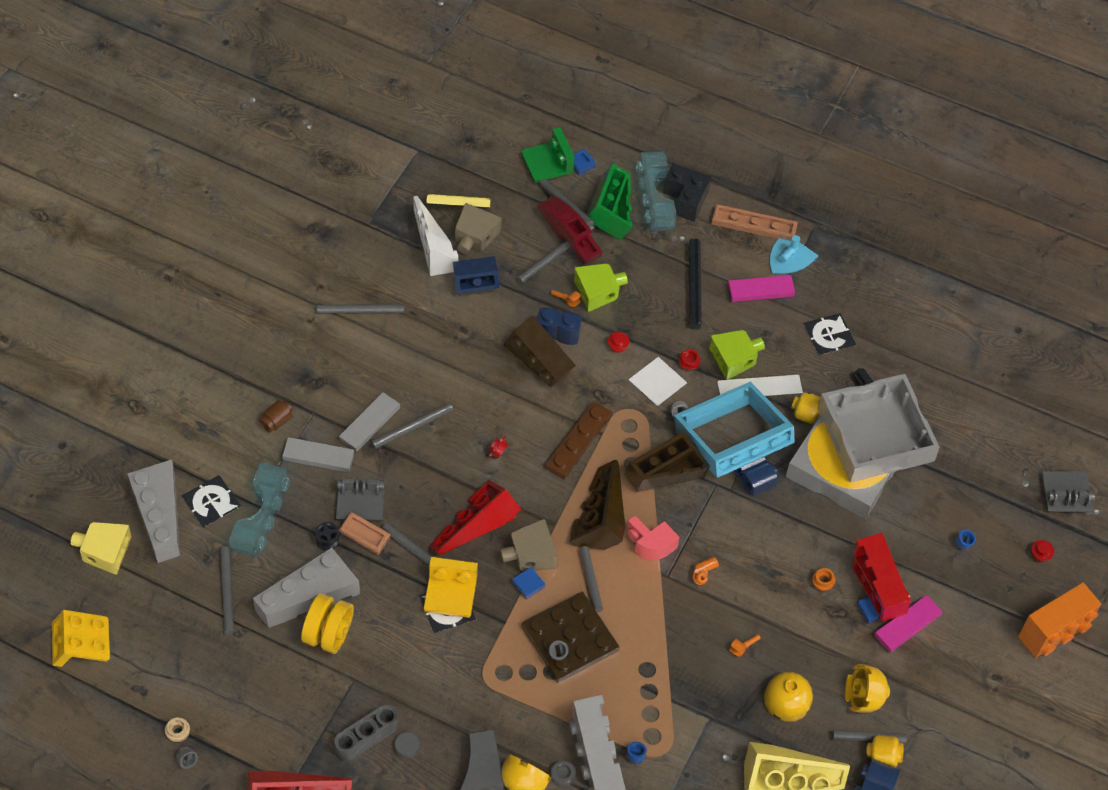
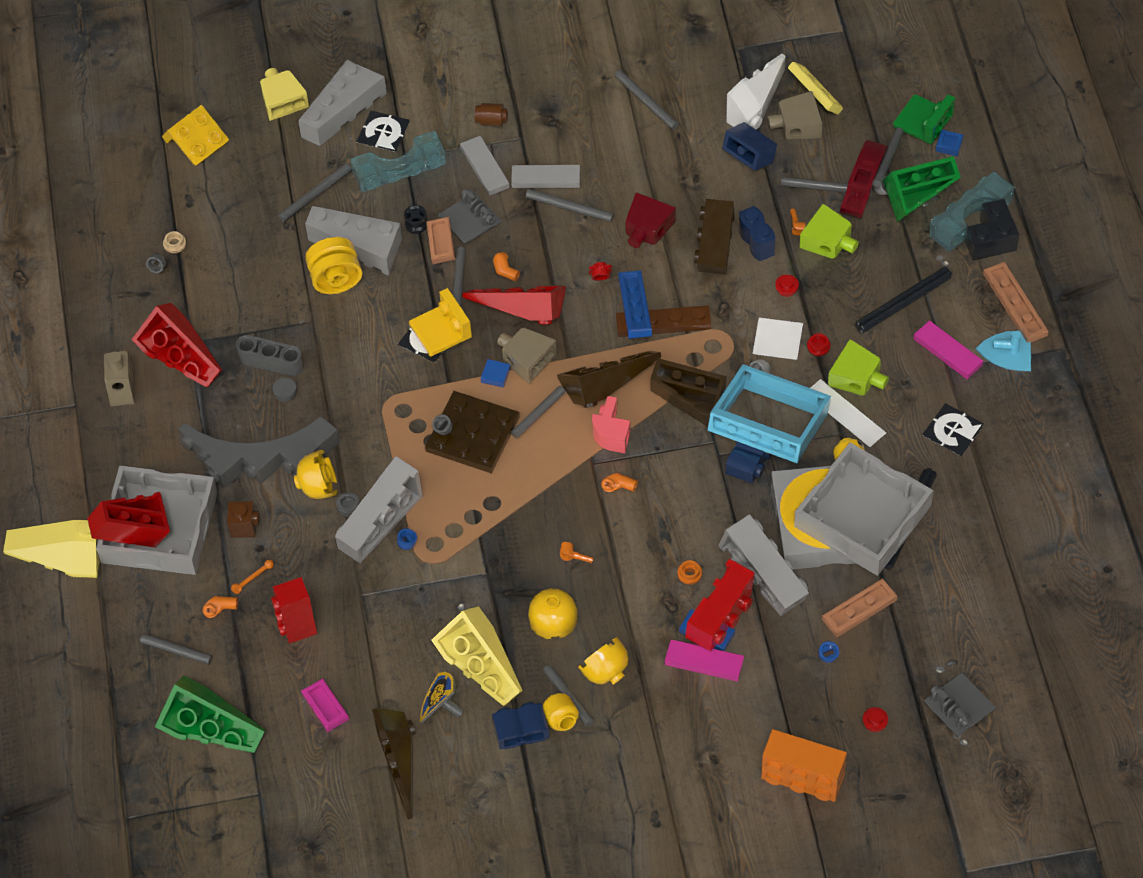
camera: 60 degrees right, 0 degrees up
(430, 509) = (502, 267): none -> orange arm
(479, 385) = (648, 220): none -> dark red torso
(553, 445) = (635, 304): none -> blue tile
(850, 522) = (761, 555): none -> light grey wedge
(938, 495) = (859, 607): none -> nougat tile

